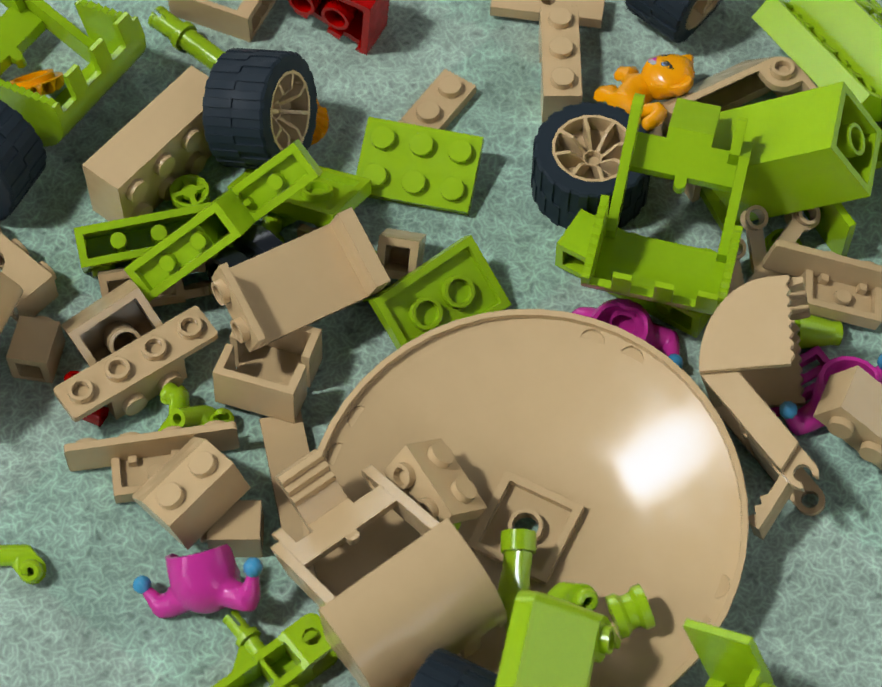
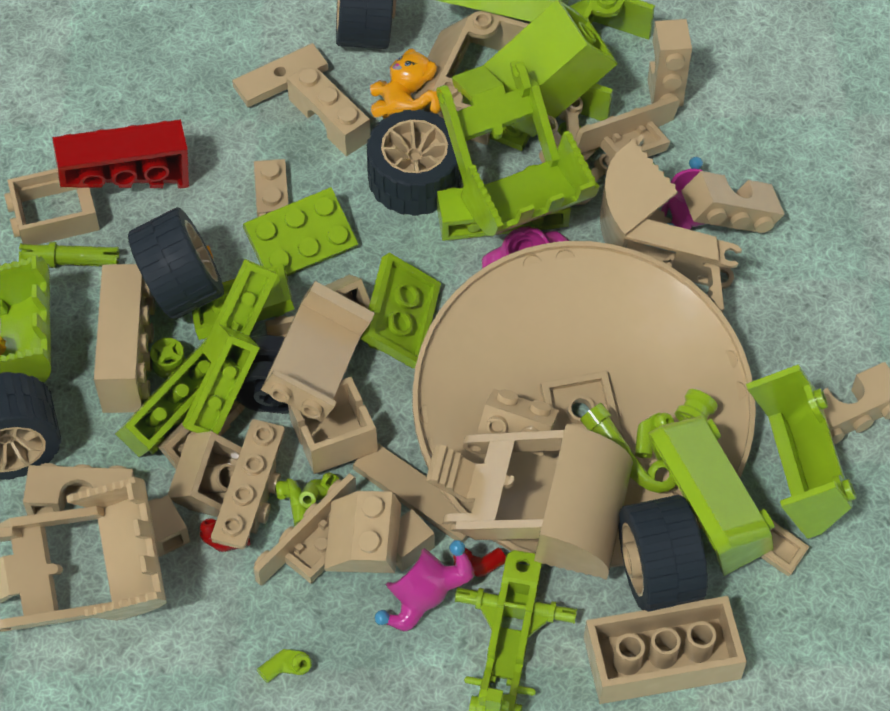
camera: 40 degrees left, 0 degrees up
(279, 601) = (487, 563): none -> red arm

